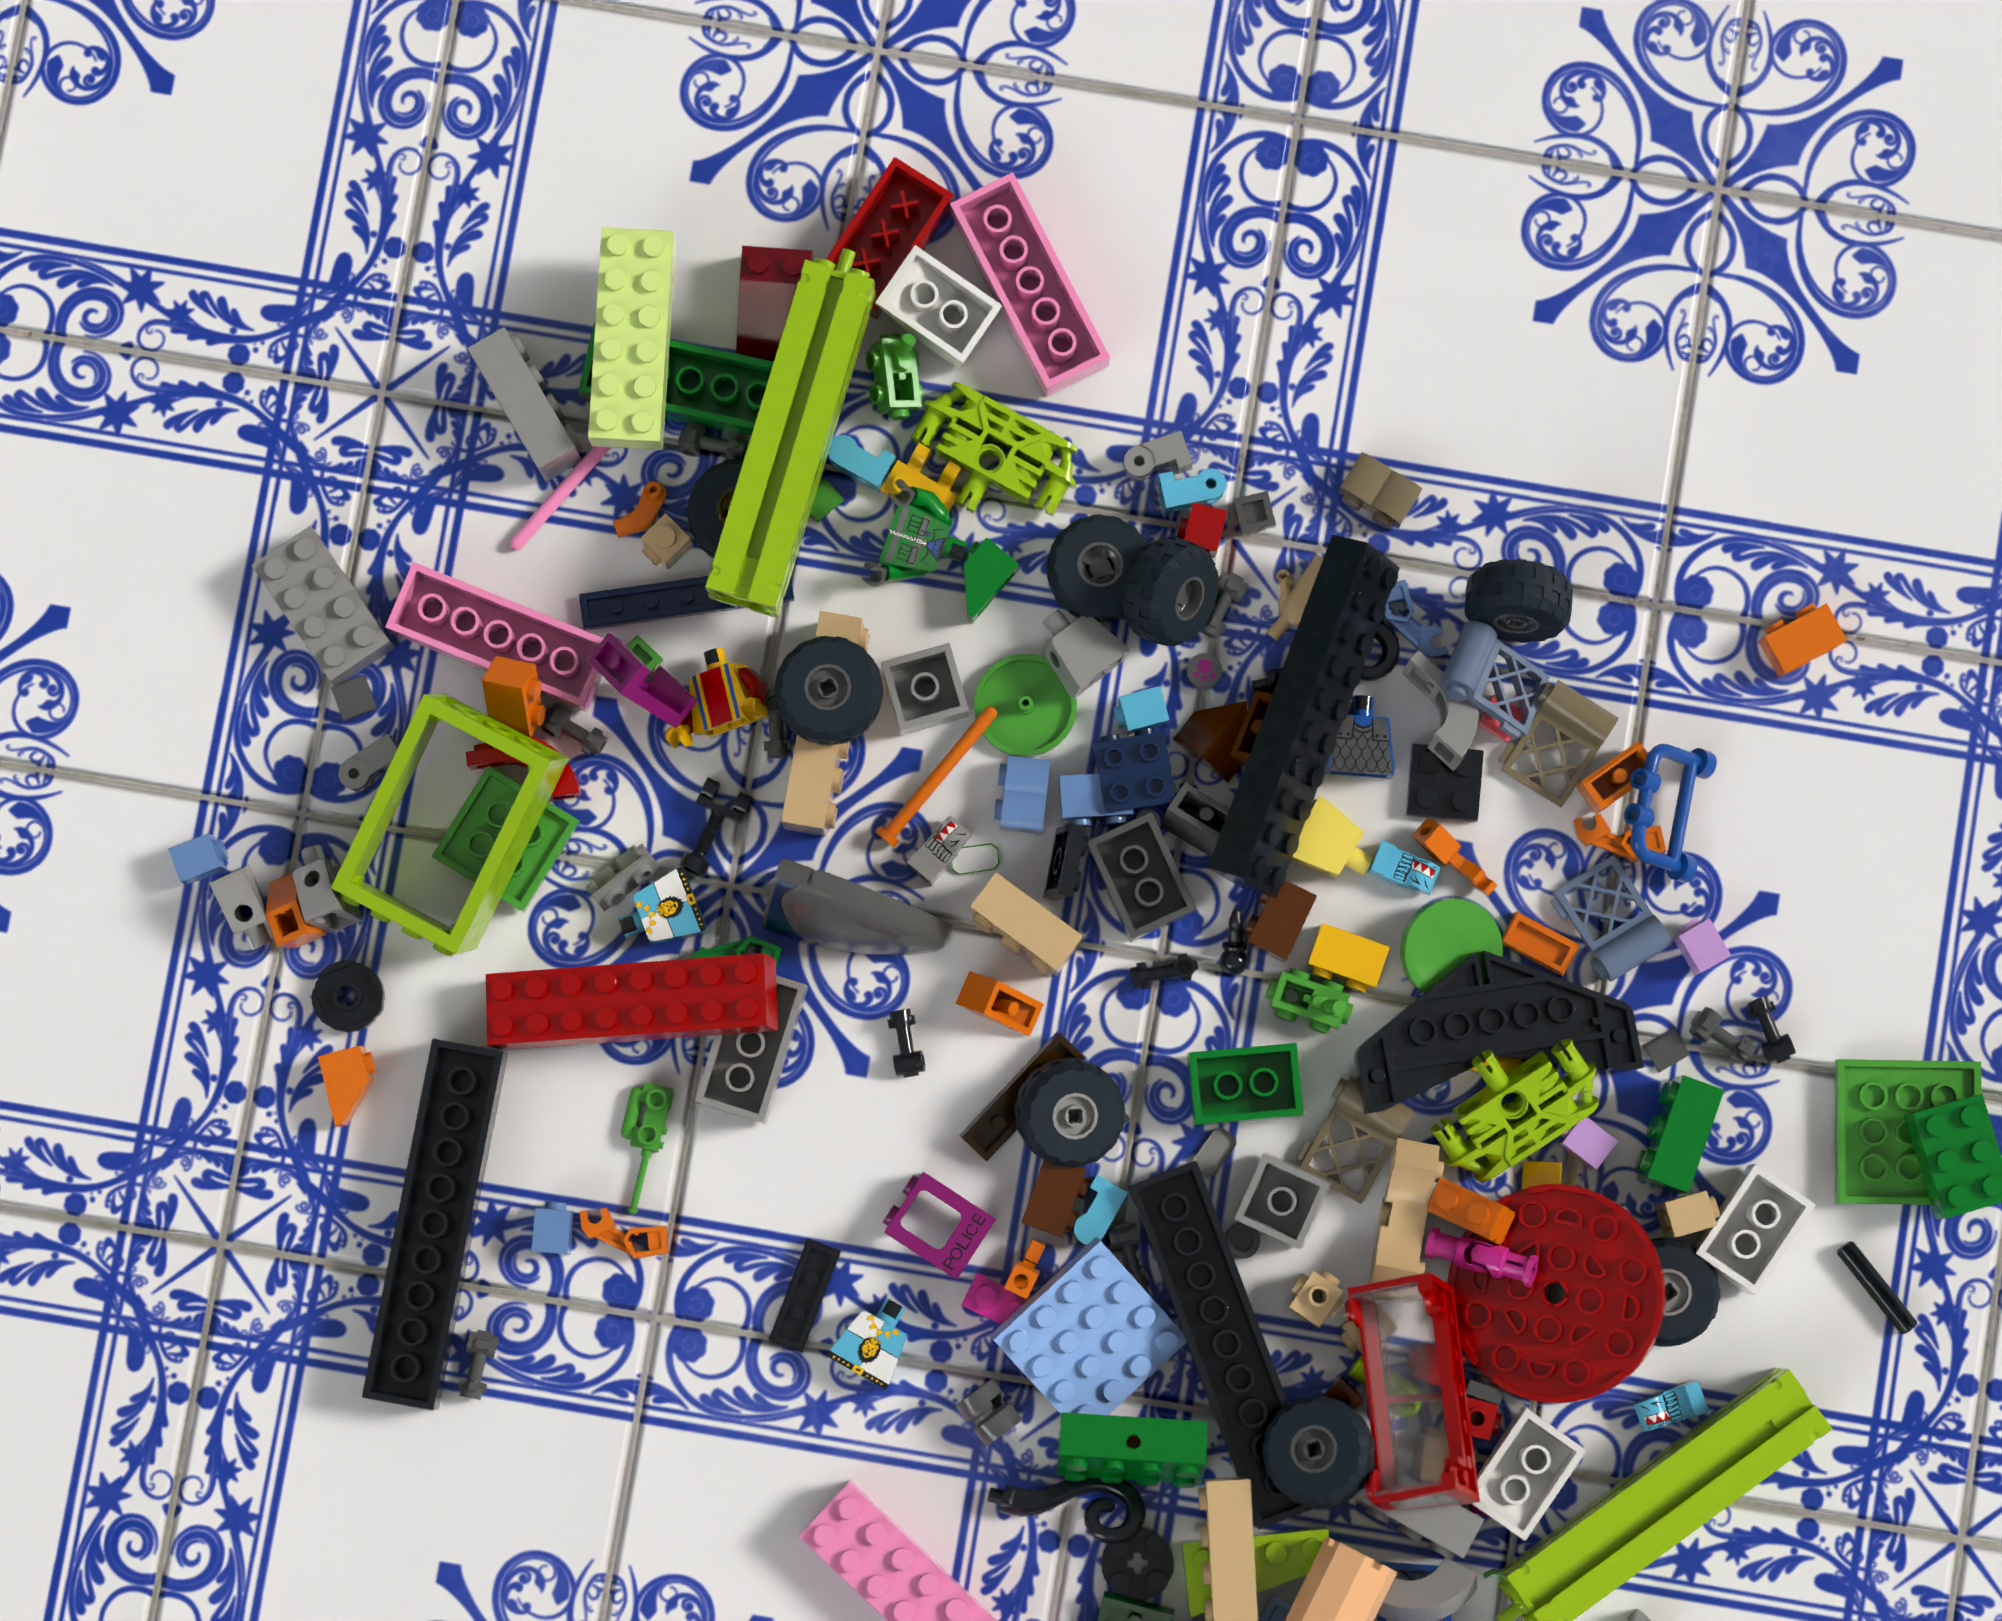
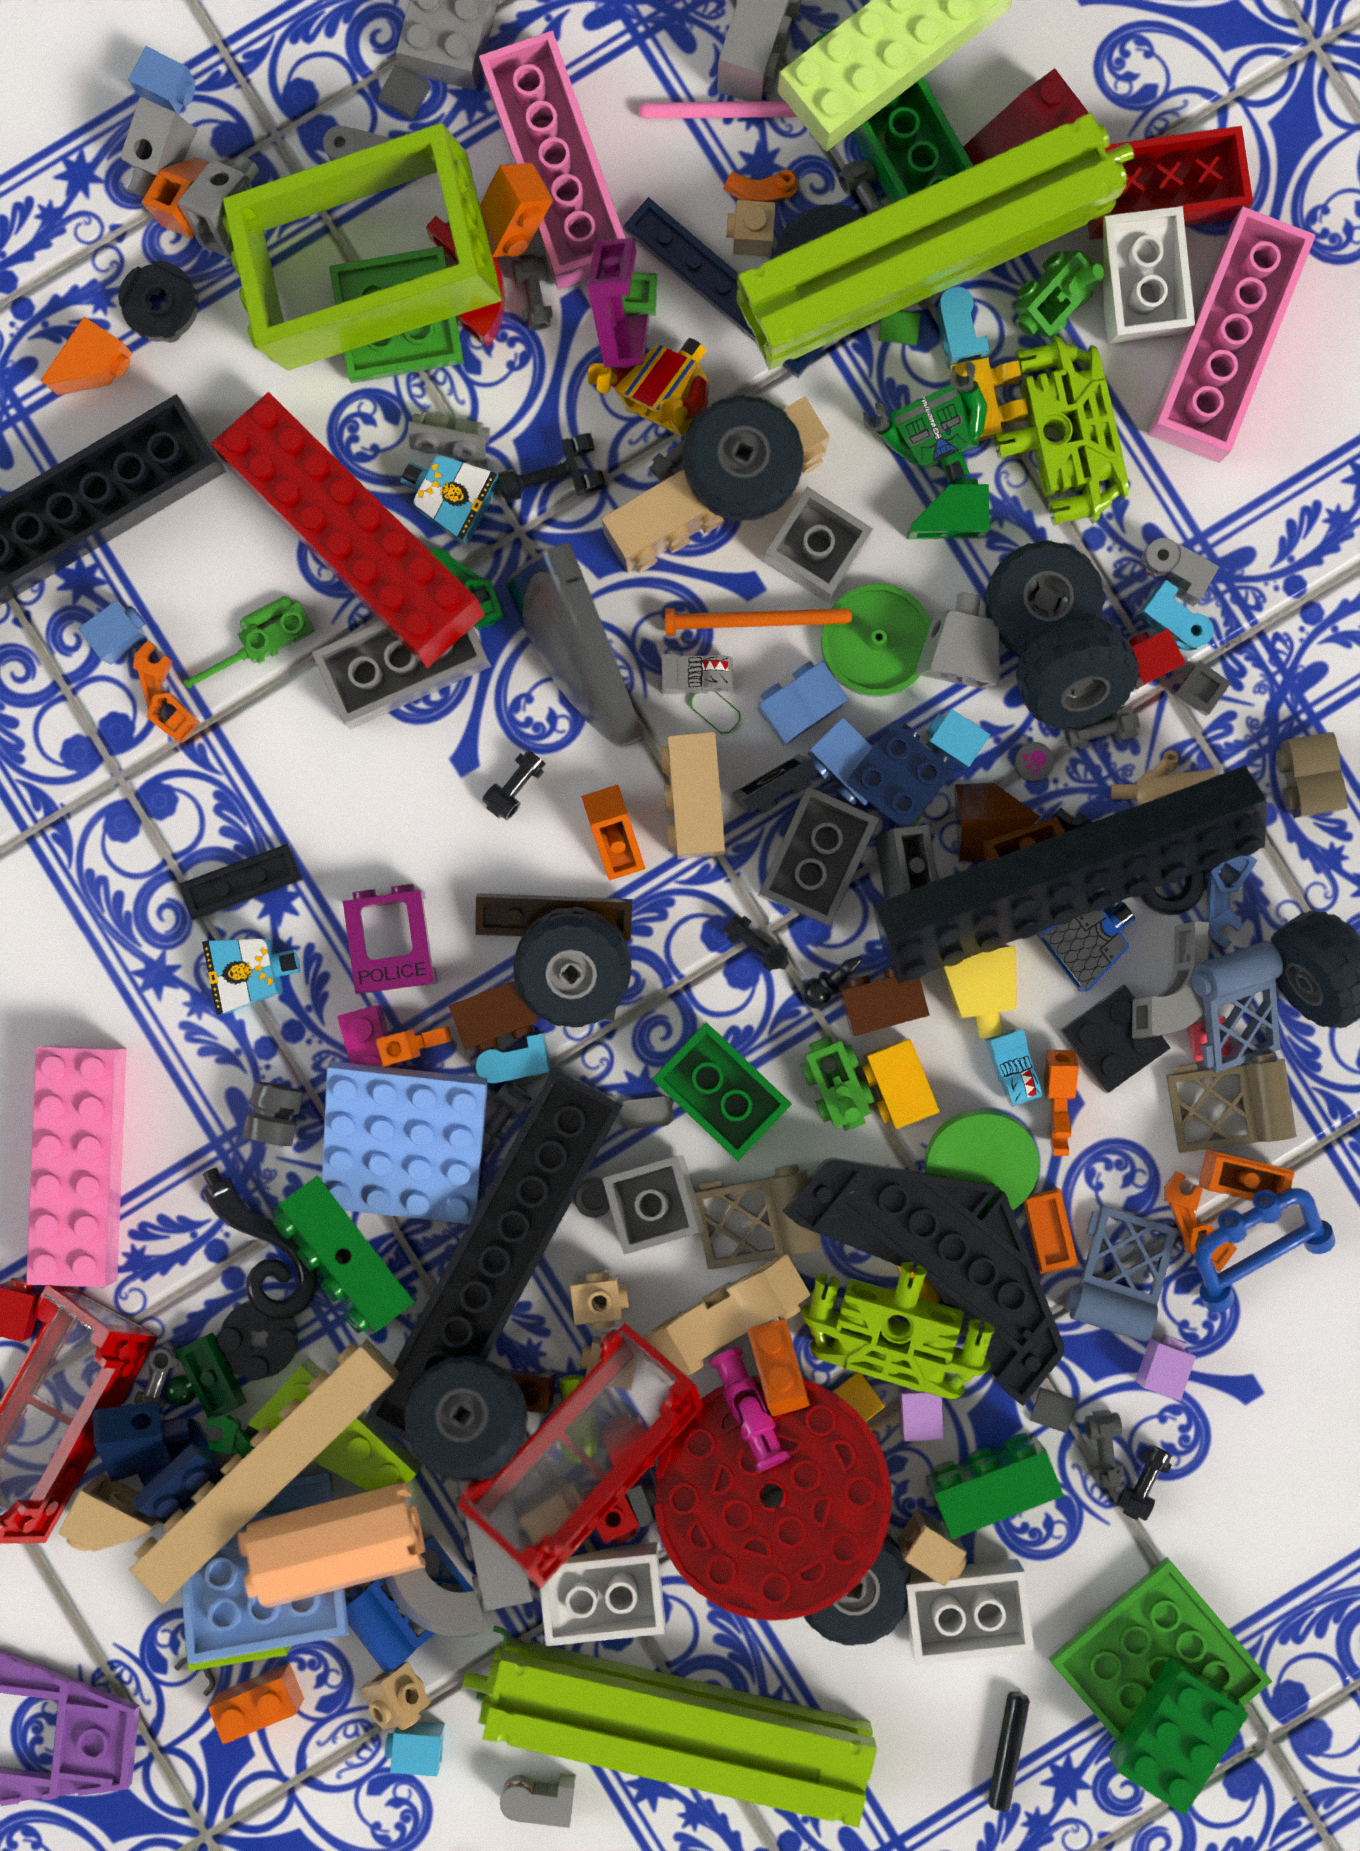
camera: 50 degrees right, 5 degrees up
(1671, 1405) = (764, 1666): medium azure leg -> none

